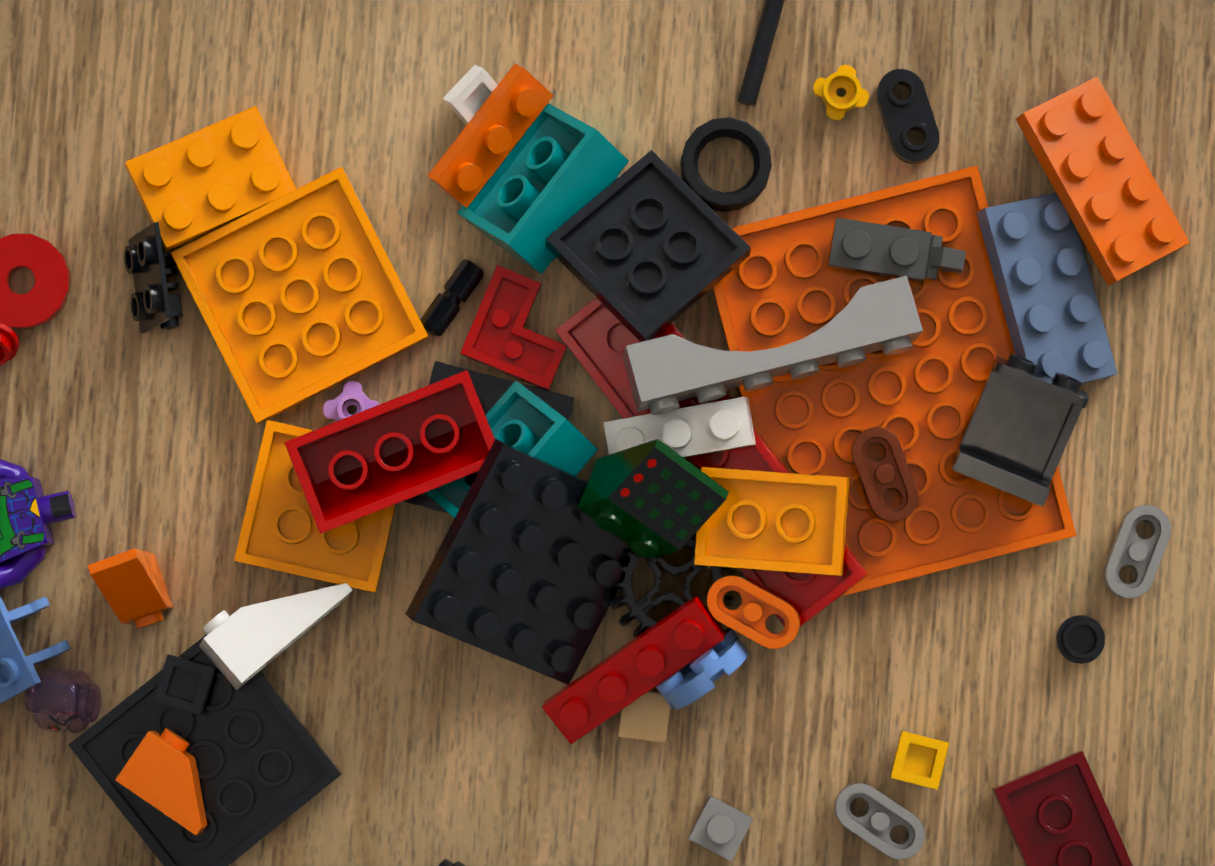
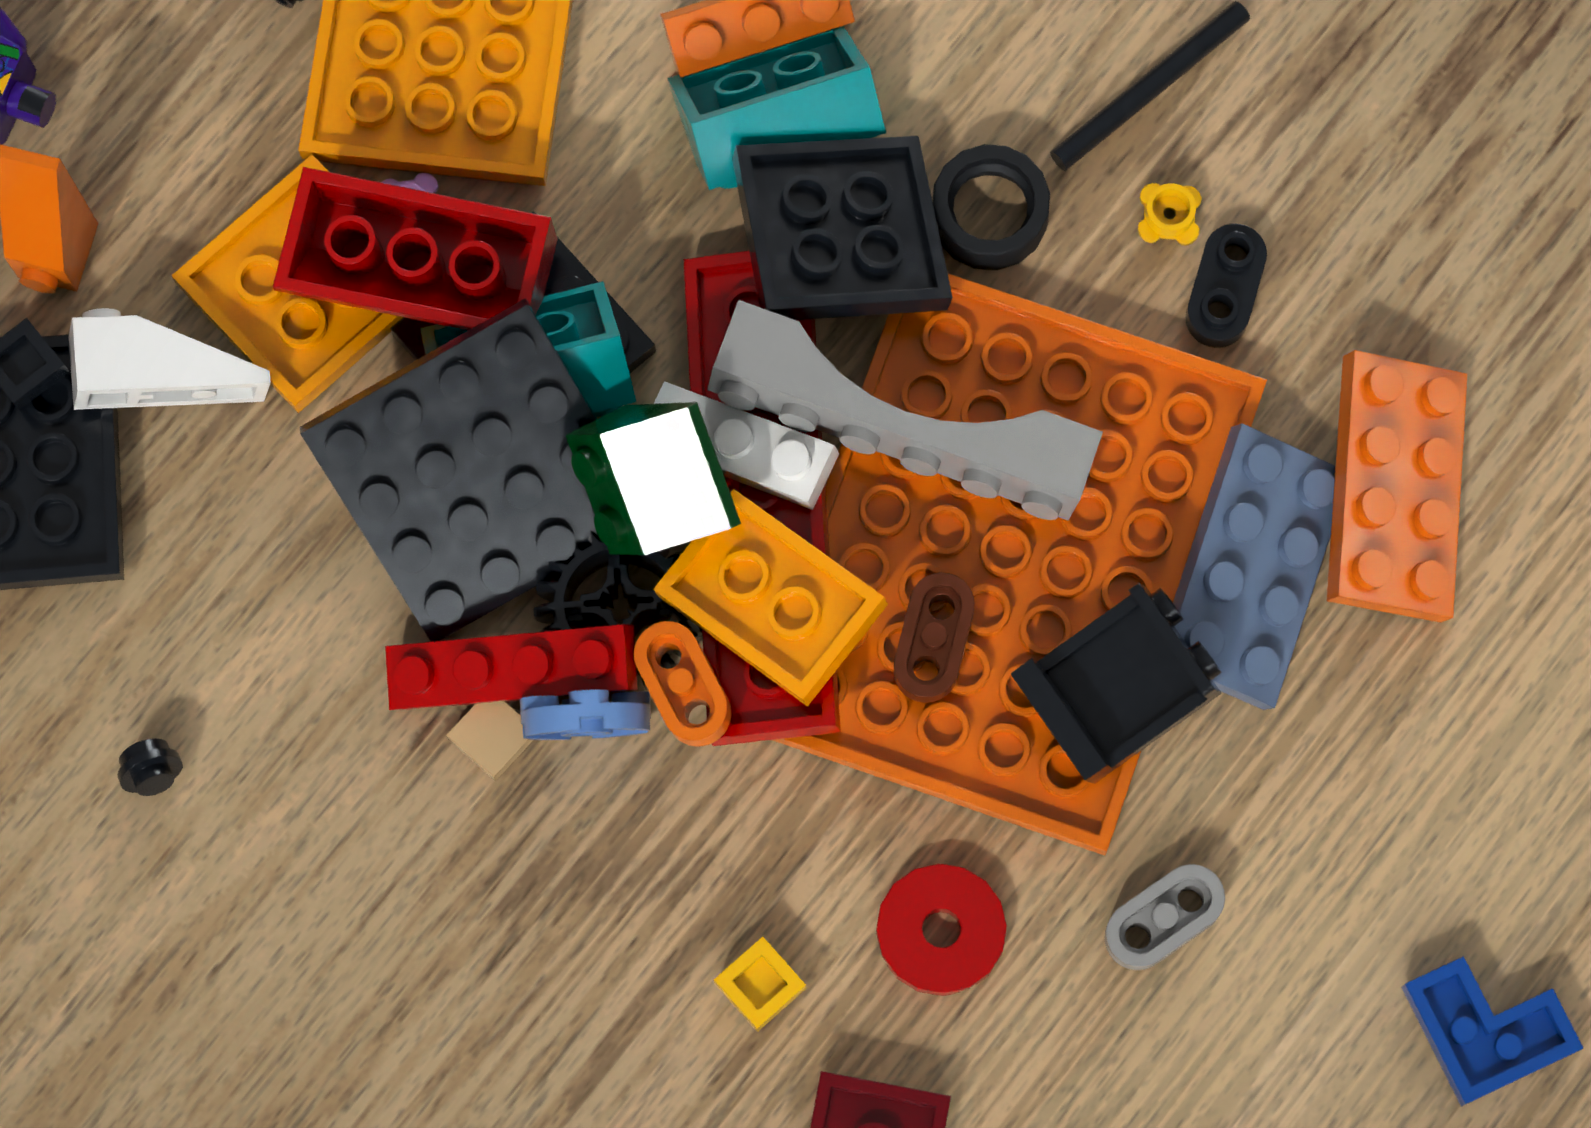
camera: 40 degrees right, 10 degrees down
(457, 289) = (613, 154): black piece -> none
(499, 334) = (622, 228): red plate -> none
(720, 828) = (488, 913): light grey plate -> none
(878, 821) = (668, 1022): light grey plate -> none
(891, 251) = (1101, 397): dark grey hinge -> none
(1033, 655) = (949, 891): none -> red tile
(1080, 639) = (1035, 973): black plate -> none

